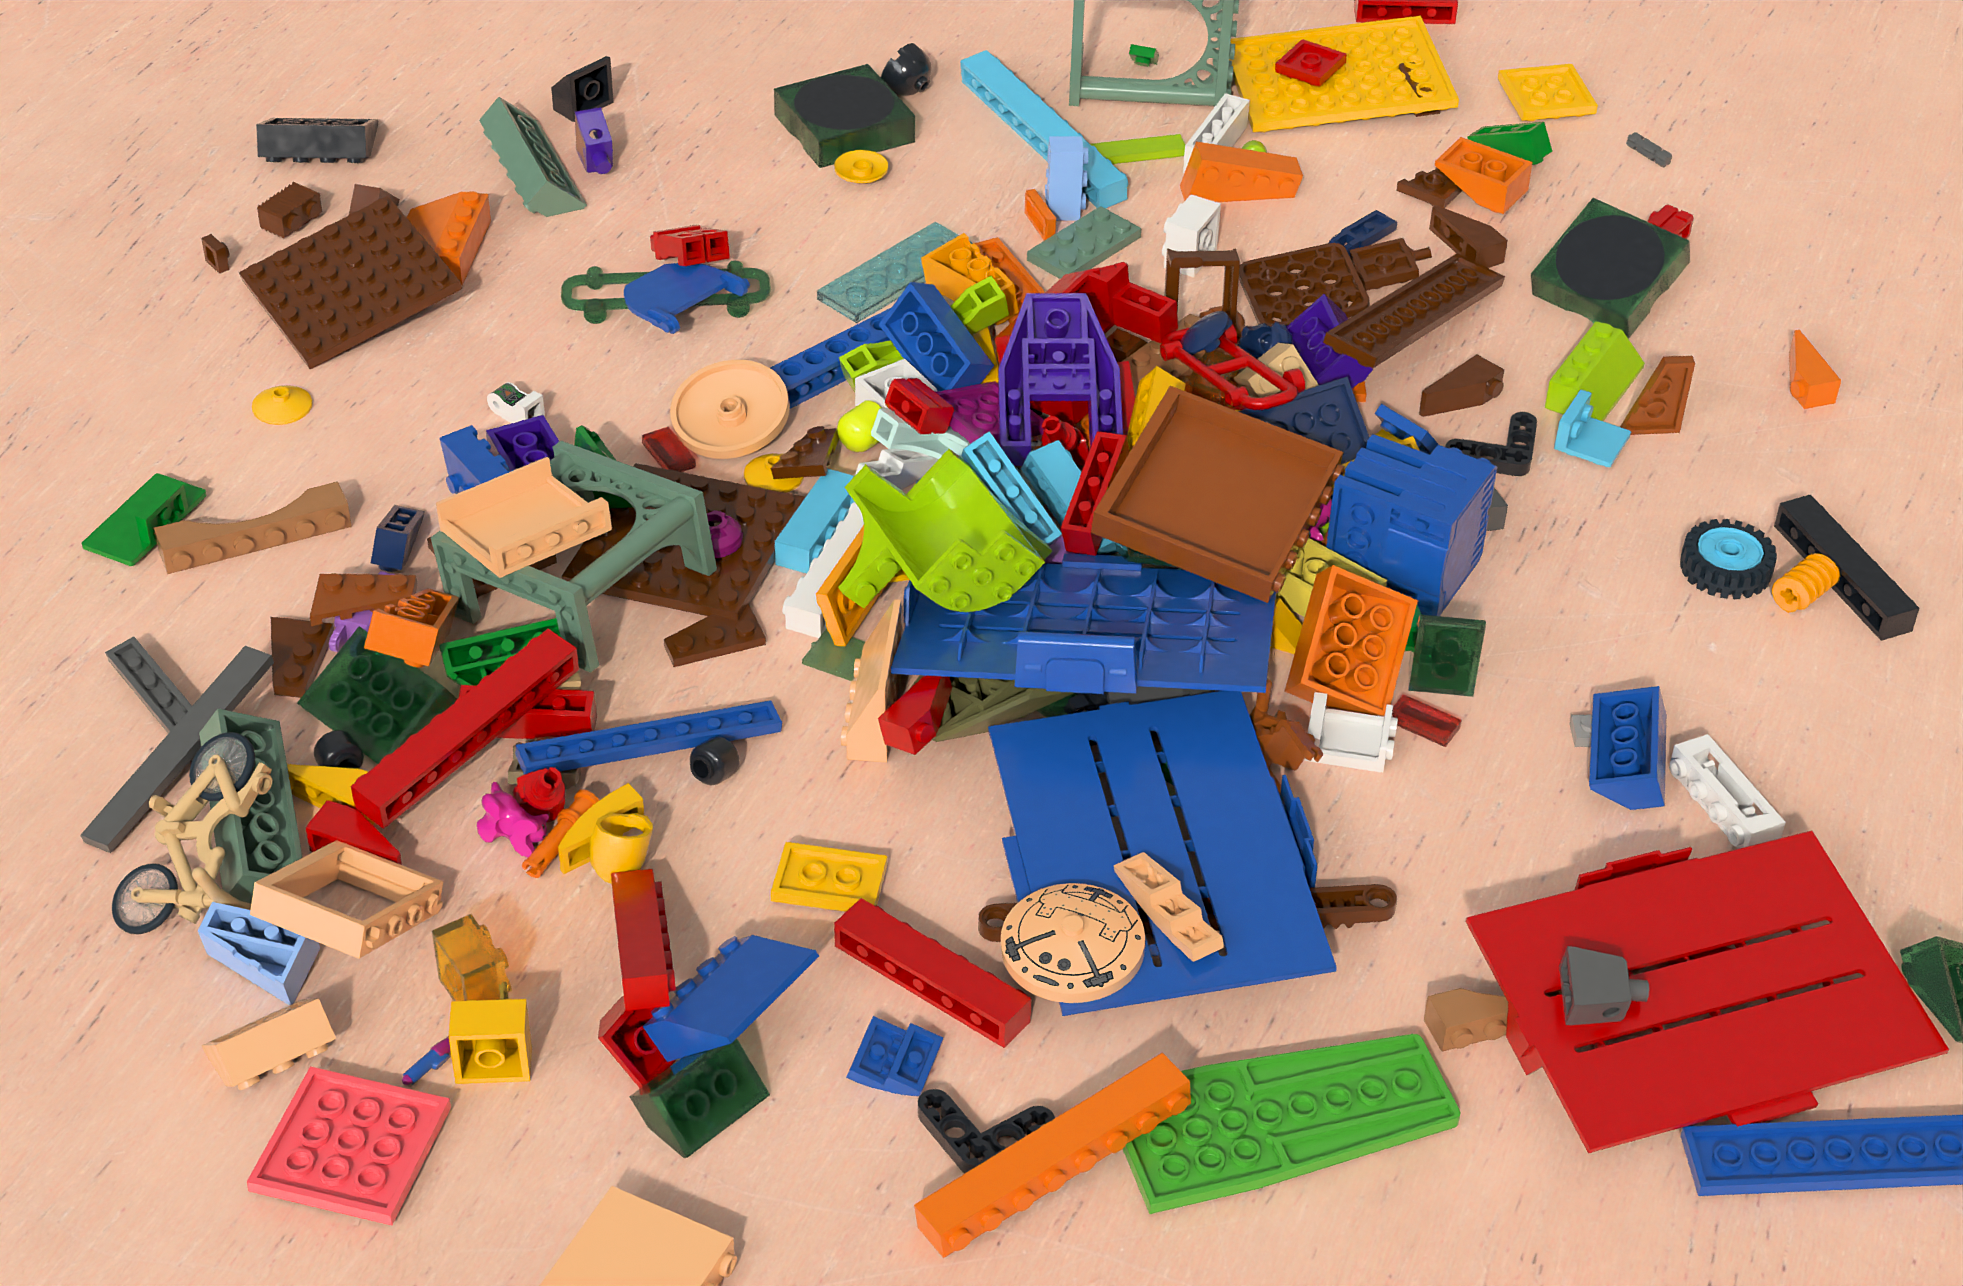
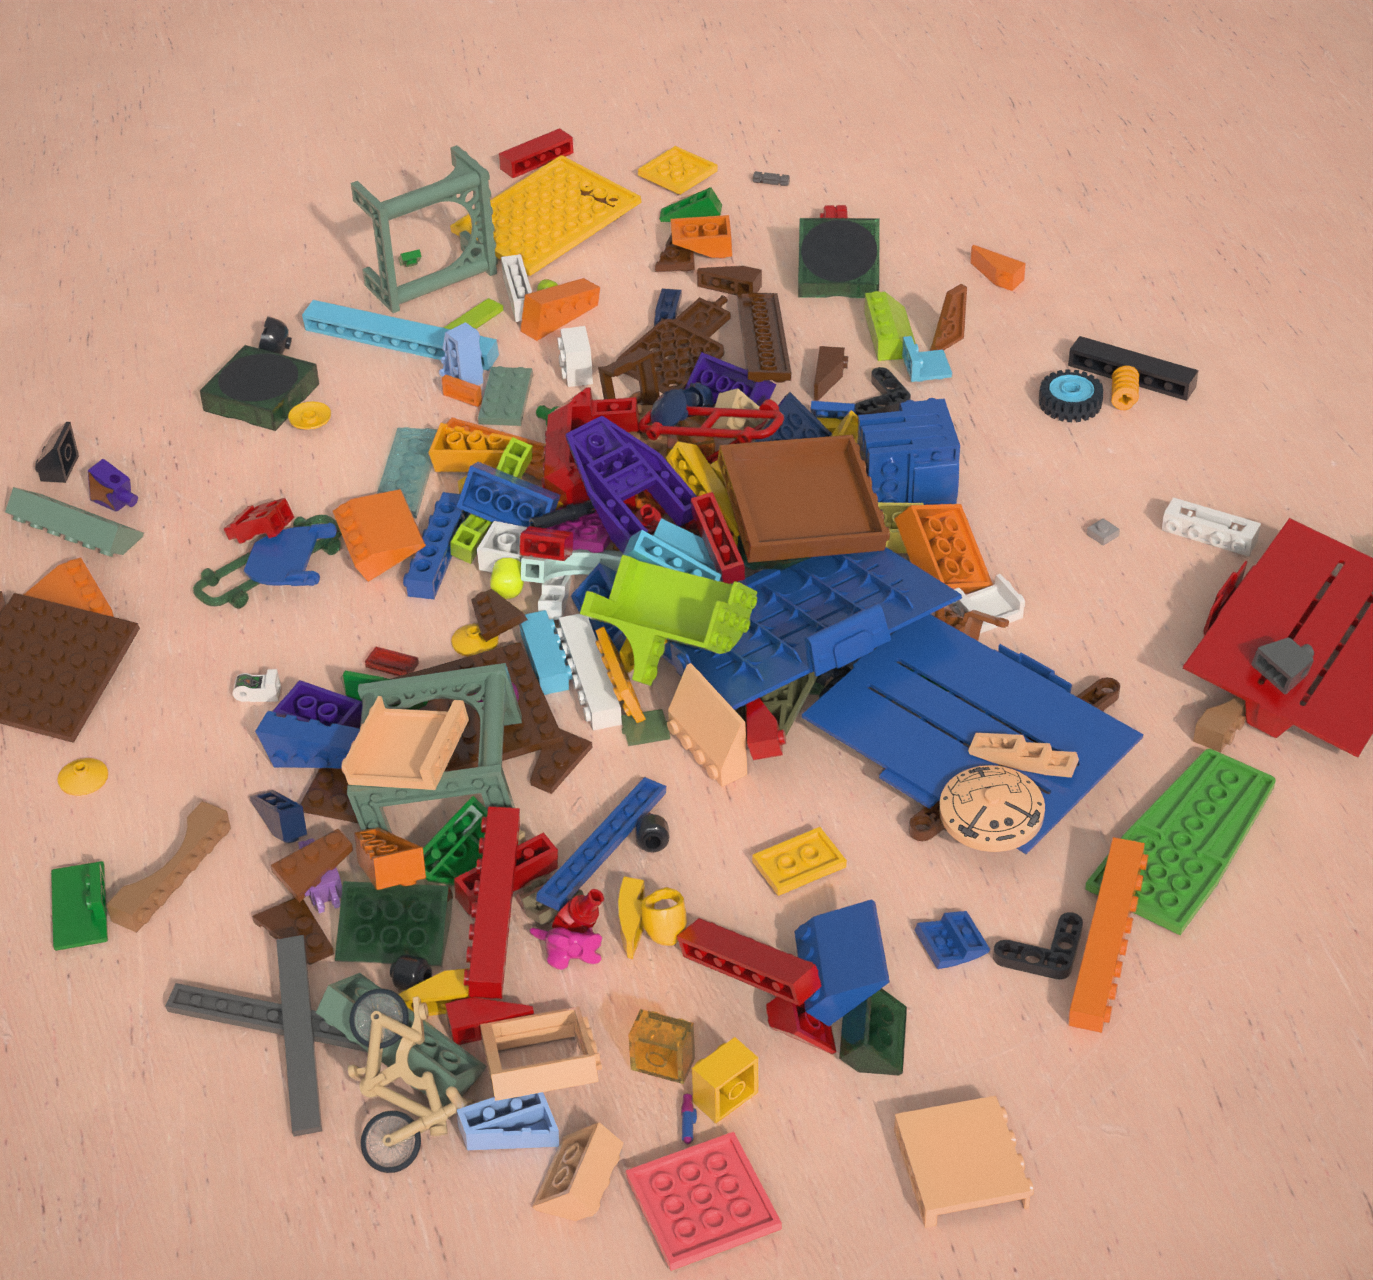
camera: 35 degrees left, 0 degrees up
(548, 848) = (608, 924): orange pin -> none
(730, 409) = (410, 612): light nougat dish -> none
(785, 312) = (378, 531): none -> orange slope
(933, 972) = (920, 877): red brick -> none
(964, 386) = (569, 513): none -> black pin
(1310, 62) = (528, 214): red plate -> none
(1425, 720) = (1016, 574): clear red tile -> none
(1445, 655) = (1001, 528): clear green slope -> none
(1629, 747) = (1142, 526): blue slope -> none

